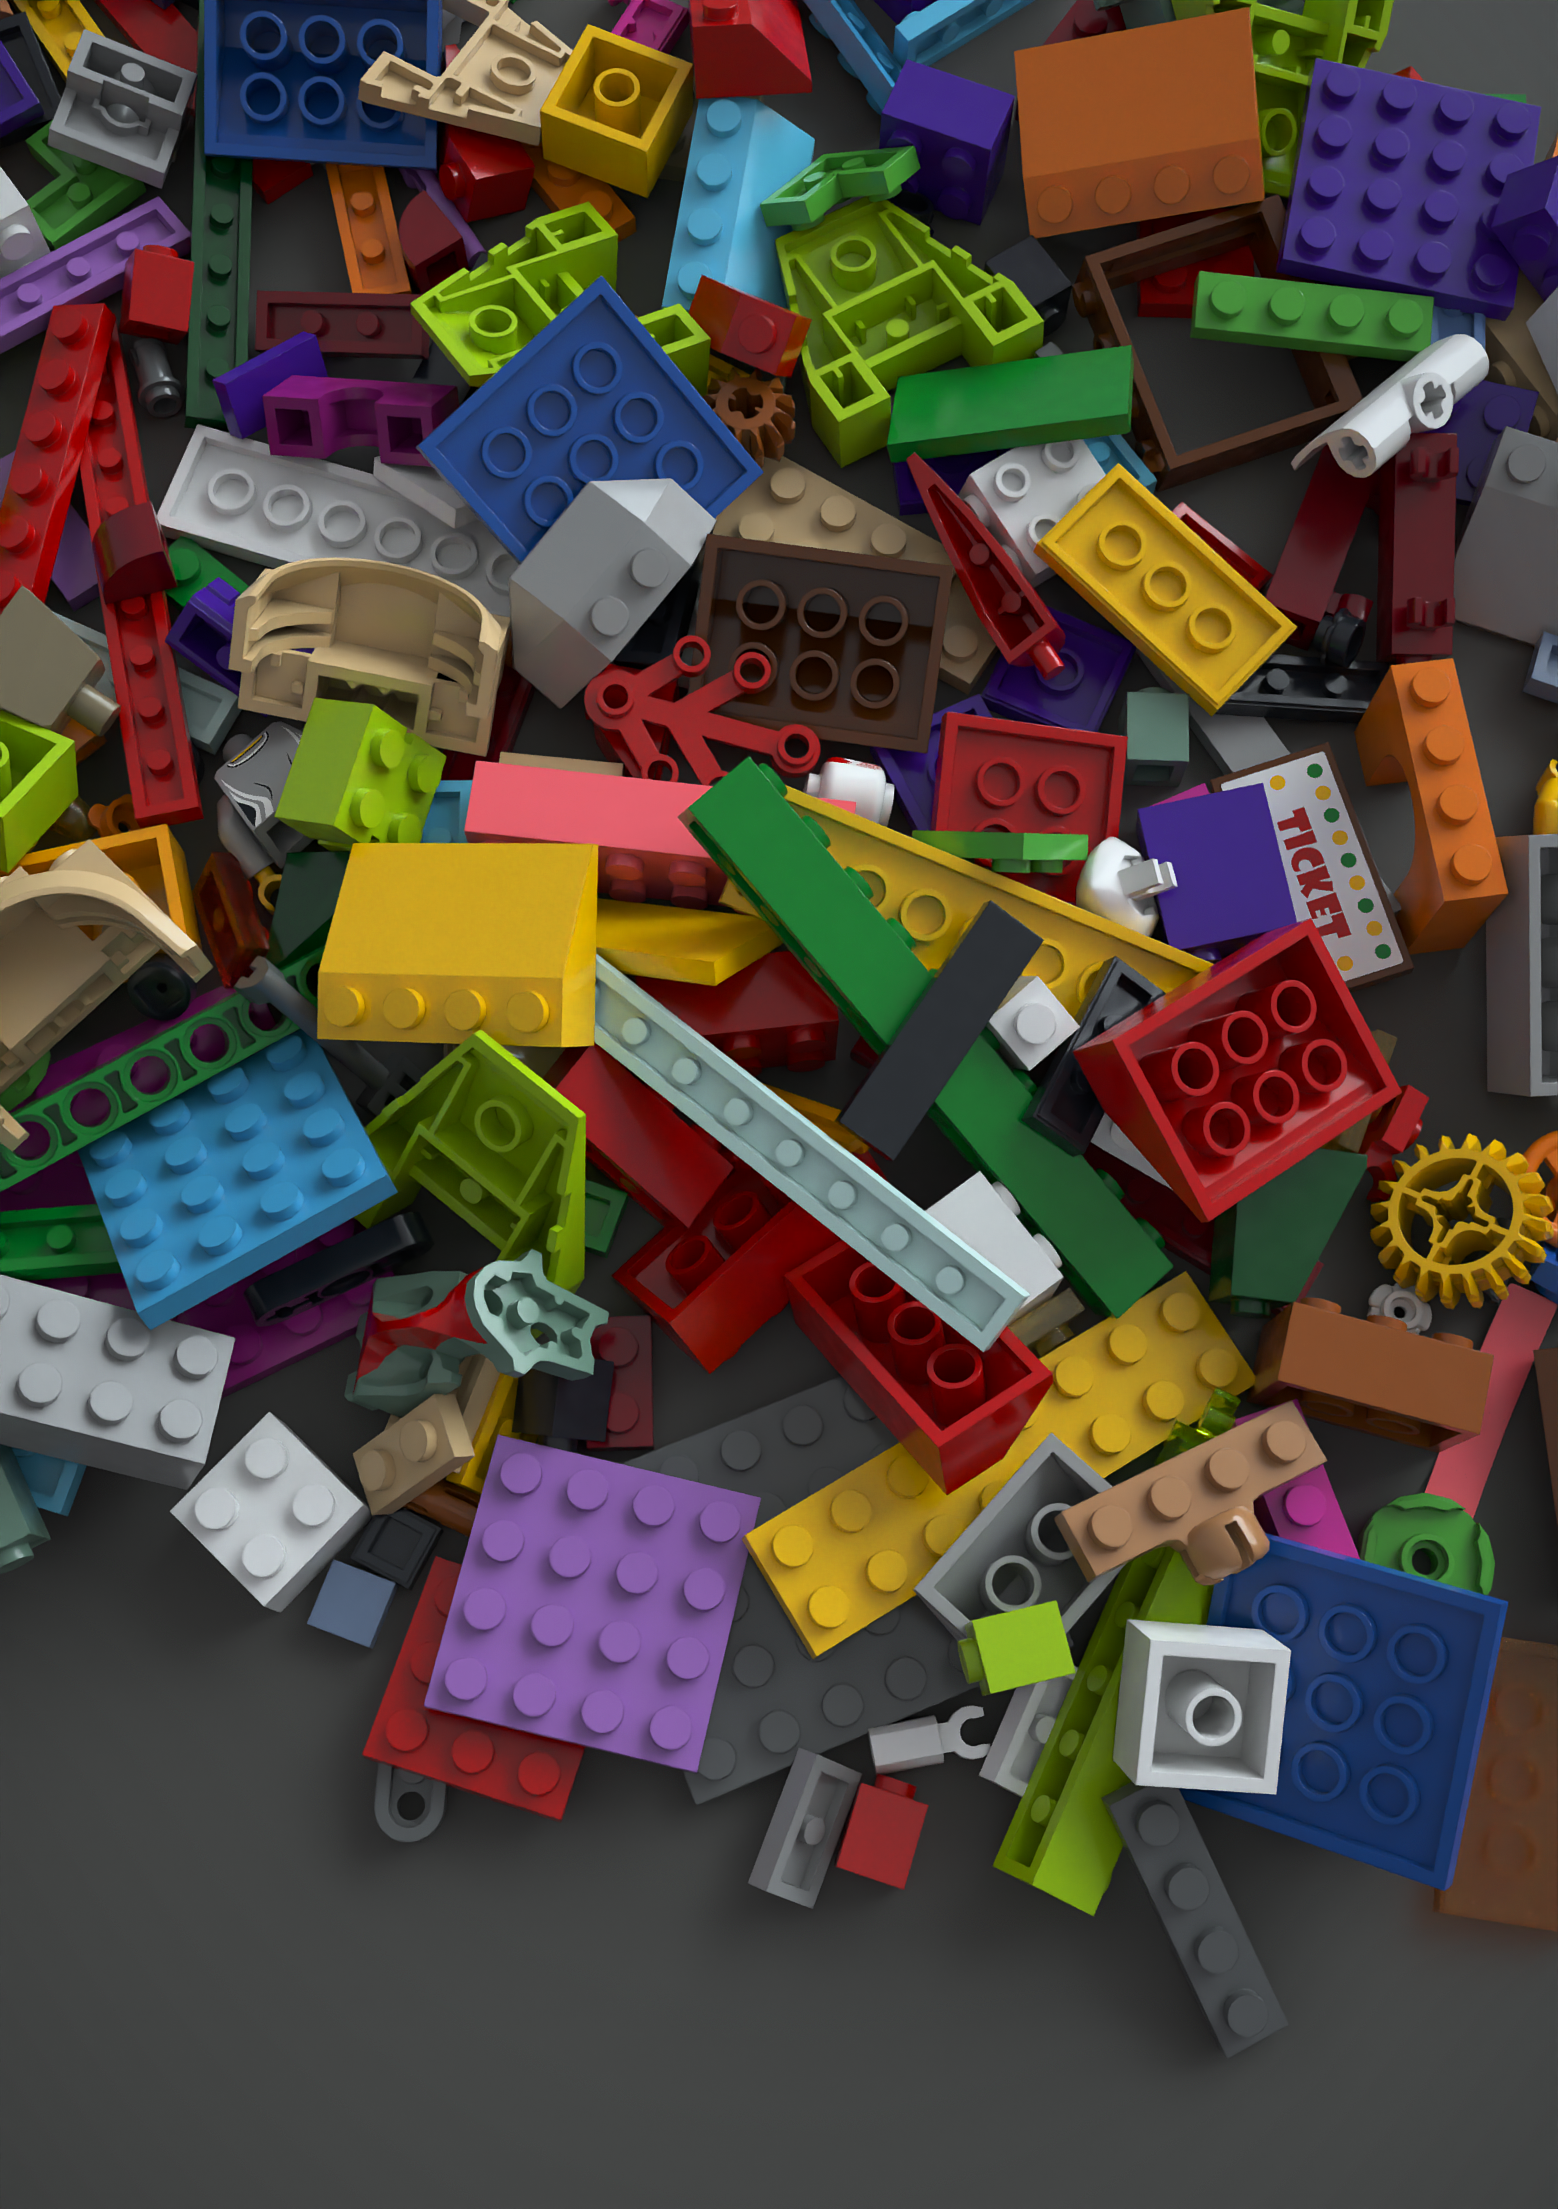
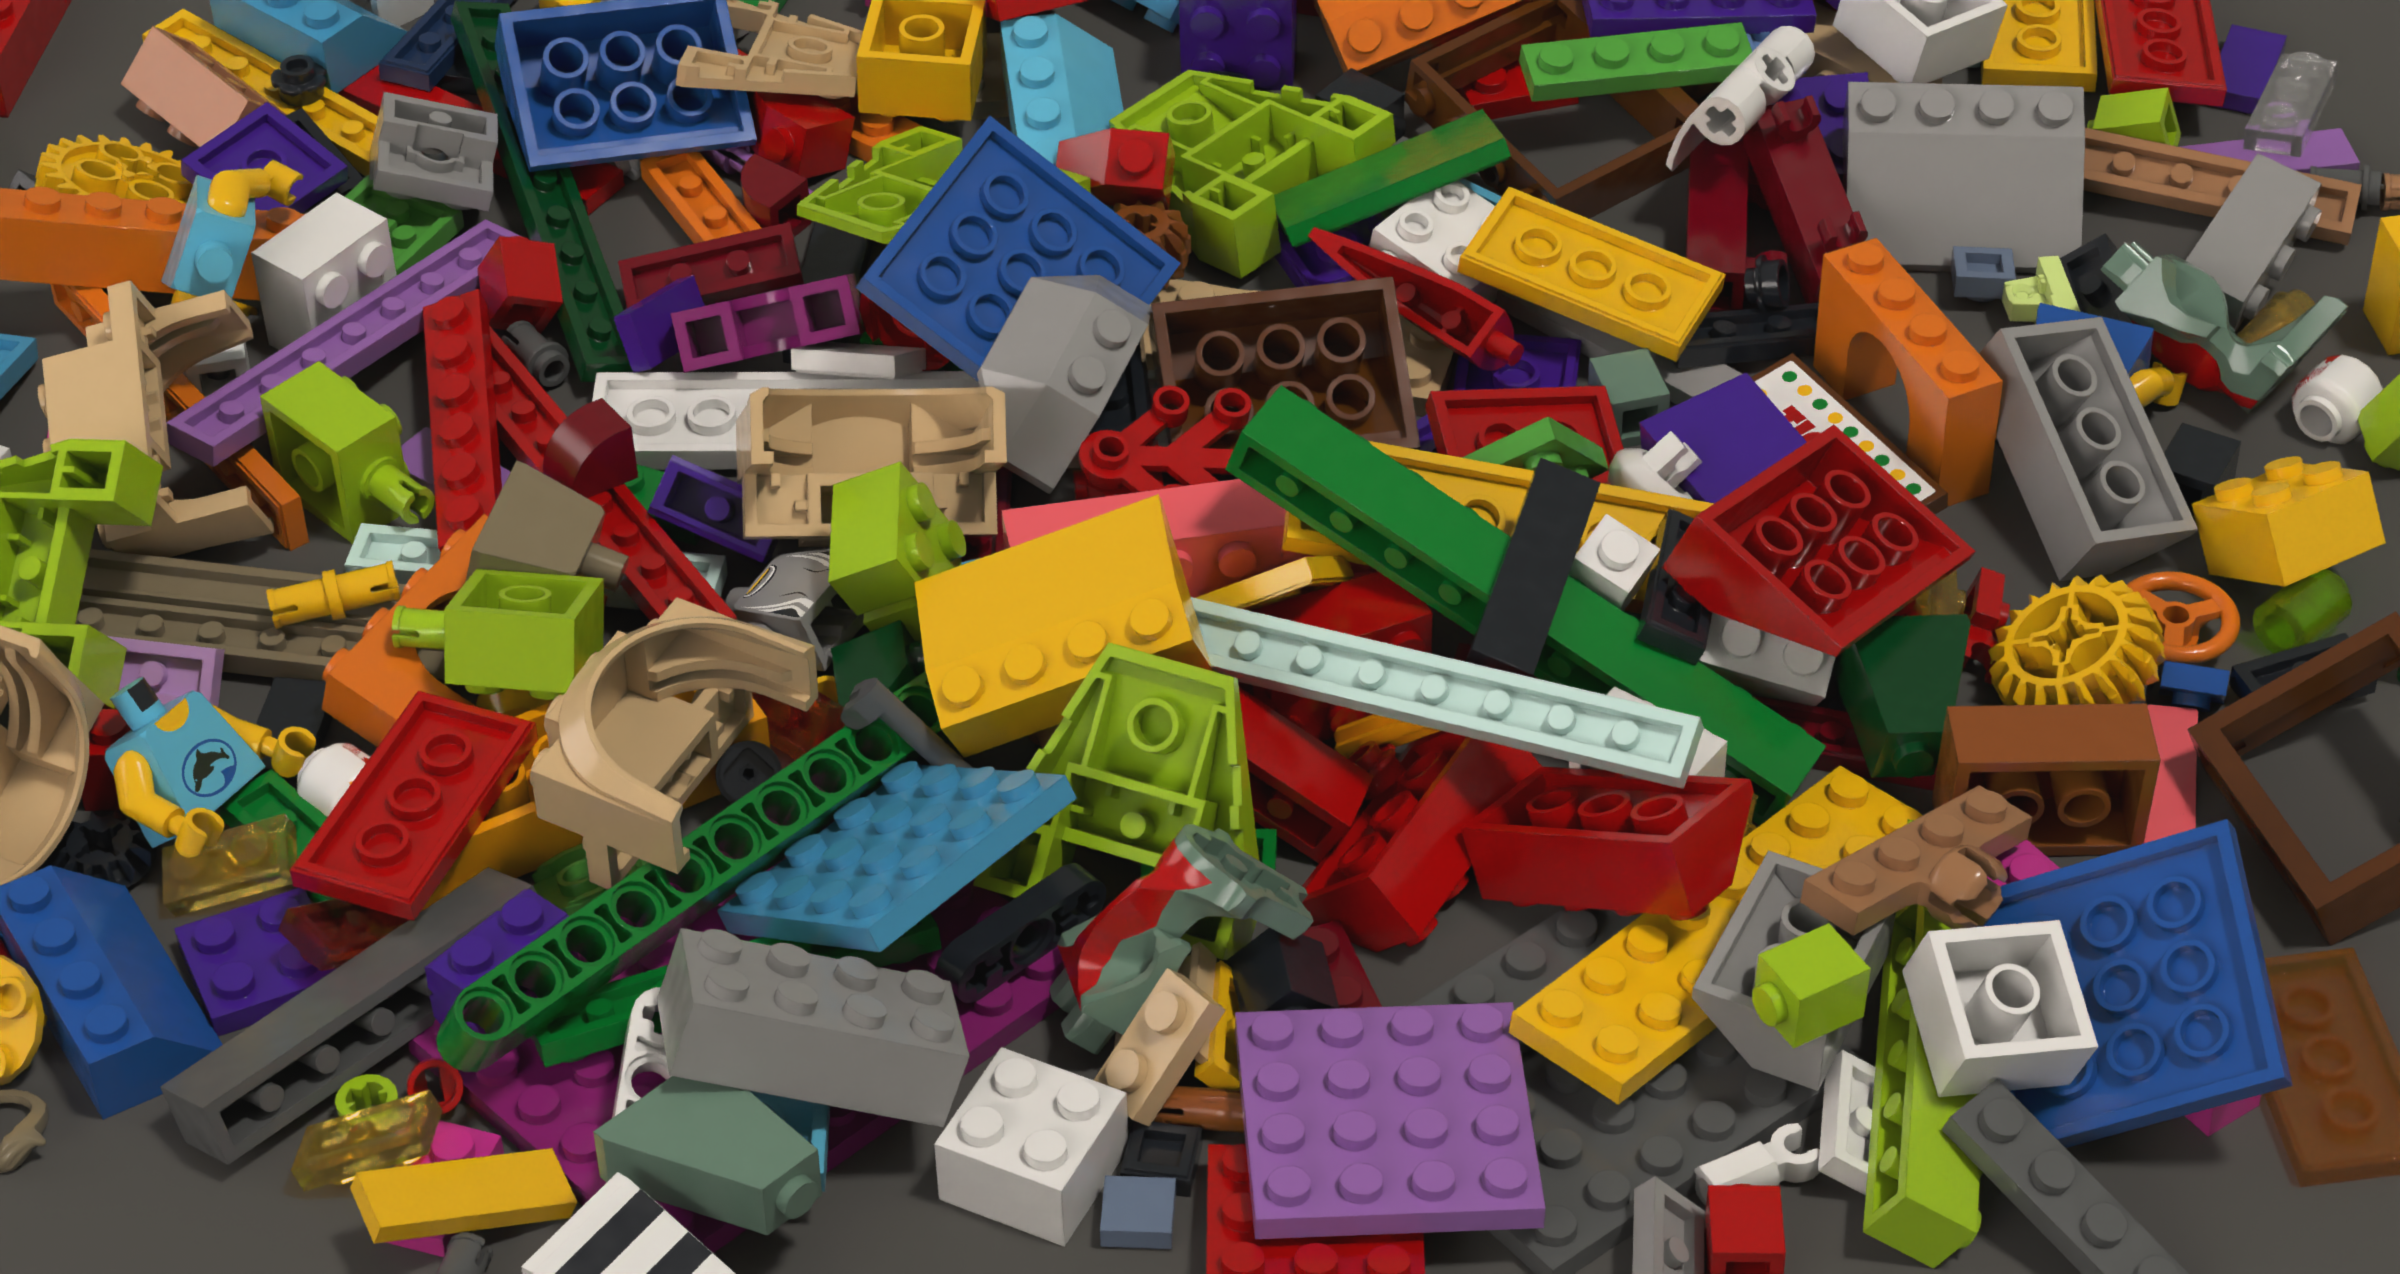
camera: 15 degrees left, 30 degrees down
(837, 179) = (1140, 73): bright green plate -> none

